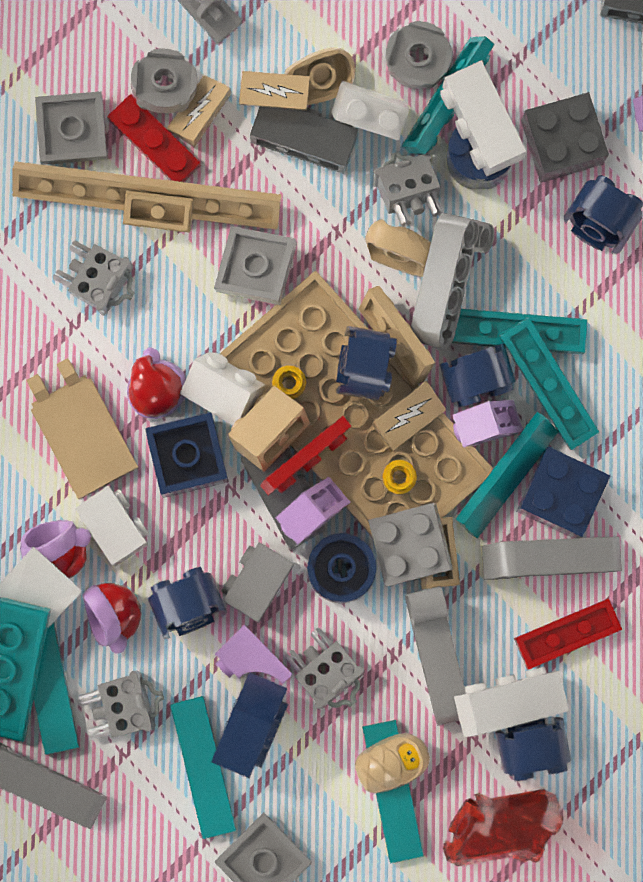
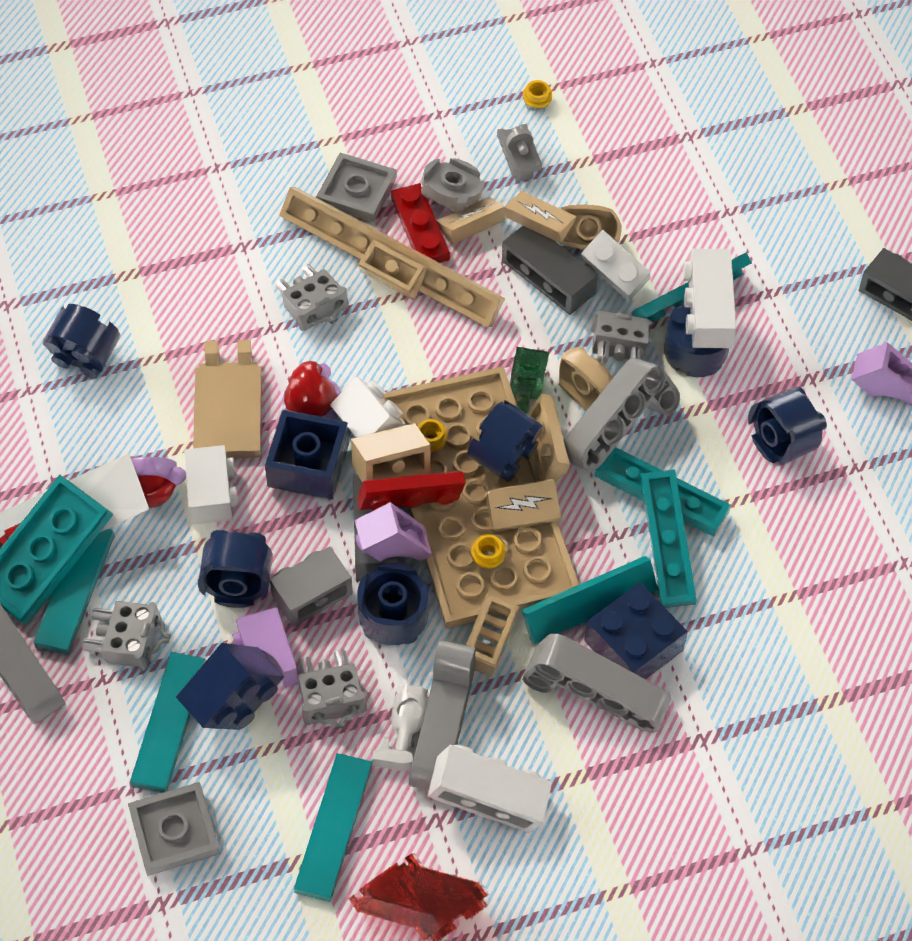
camera: 30 degrees right, 25 degrees down
(112, 614) = (166, 550): piece -> none
(255, 265) = (453, 341): light grey plate -> none
(344, 271) = (528, 375): none -> clear green brick
(392, 763) = (346, 794): tan piece -> none
(405, 662) = (407, 718): none -> white piece
(410, 544) = (467, 608): light grey plate -> none
(435, 46) = (668, 239): light grey plate -> none
(478, 374) = (605, 501): dark blue brick -> none
(487, 422) = (593, 540): lavender arch -> none
(534, 748) = (490, 839): dark blue brick -> none
(564, 137) = (780, 356): dark grey brick -> none
(568, 633) = (580, 761): red plate -> none

